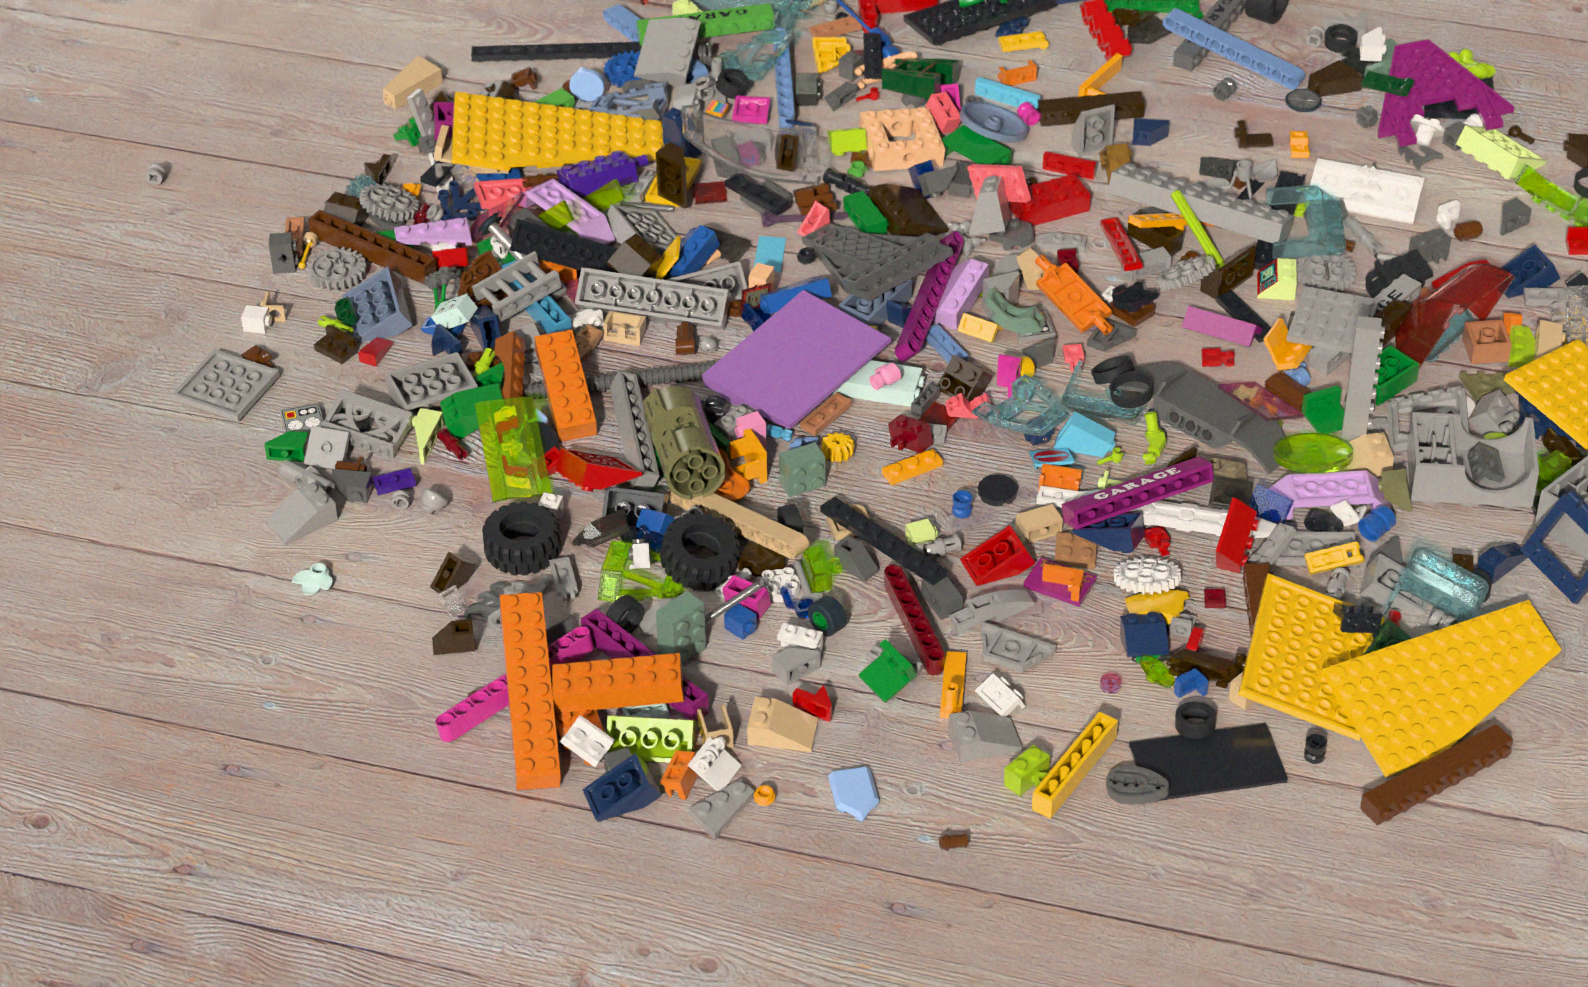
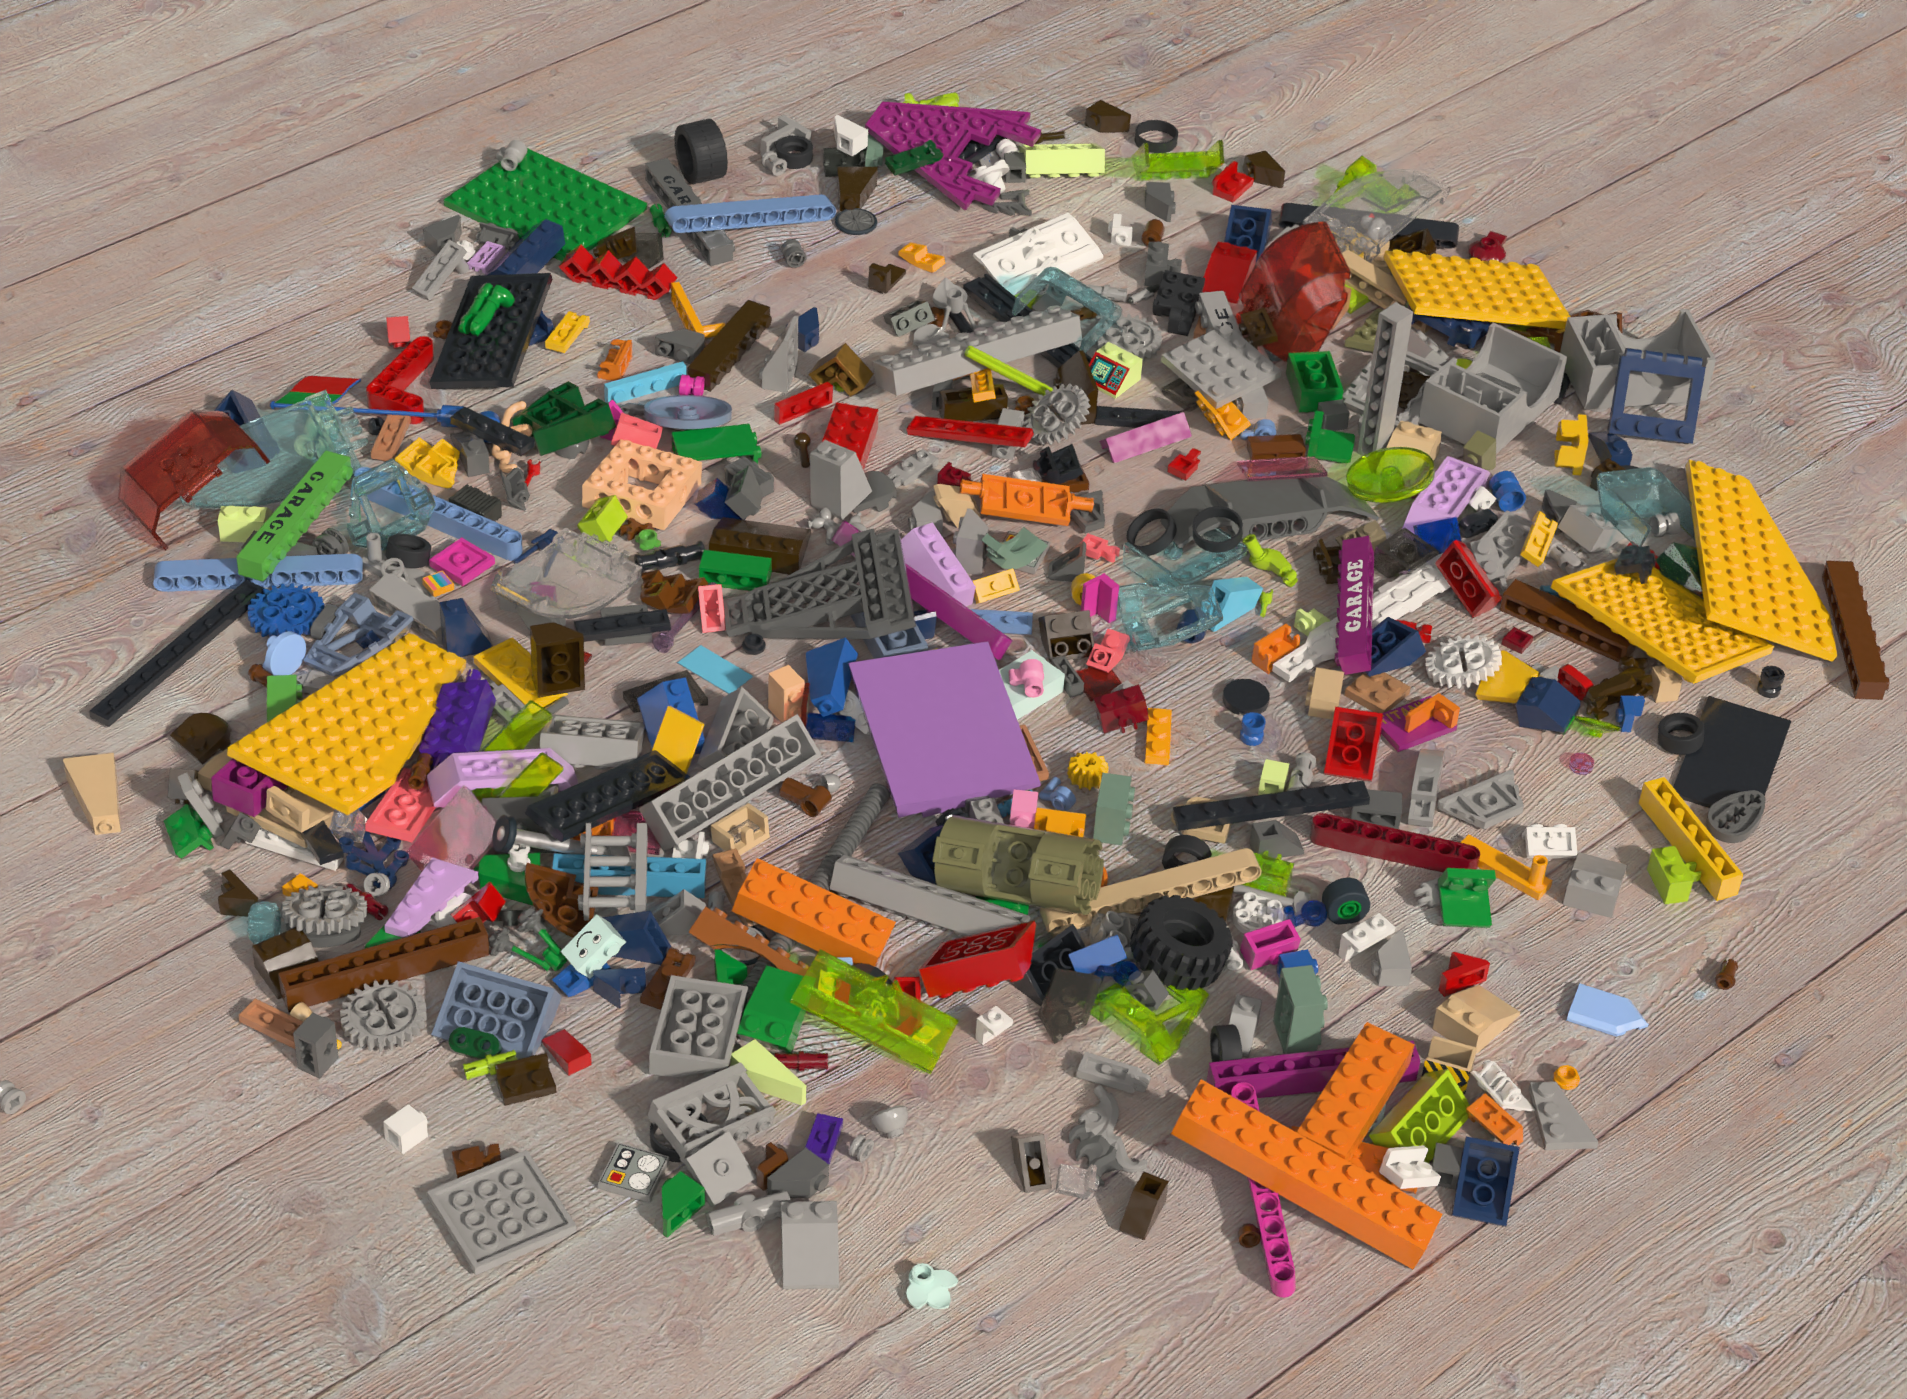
camera: 60 degrees left, 0 degrees up
(267, 303) = (389, 1107): tan bracket -> none
(484, 362) = (694, 964): lime pin -> none
(522, 555) = (1028, 1048): black tyre -> none
(523, 77) = (199, 698): reddish brown bracket -> none
(635, 258) = (655, 761): slope -> none
(668, 50) = (318, 560): light grey slope -> none
(732, 602) = (1280, 963): dark grey bar -> none
(786, 152) = (585, 567): dark brown slope -> none
(1013, 179) = (791, 459): coral plate -> none
(1052, 457) = (1237, 637): piece -> none
(1063, 87) = (680, 345): none -> dark grey slope
(1366, 116) = (931, 198): dark grey gear -> none
(1475, 534) = (1577, 434): none -> yellow panel

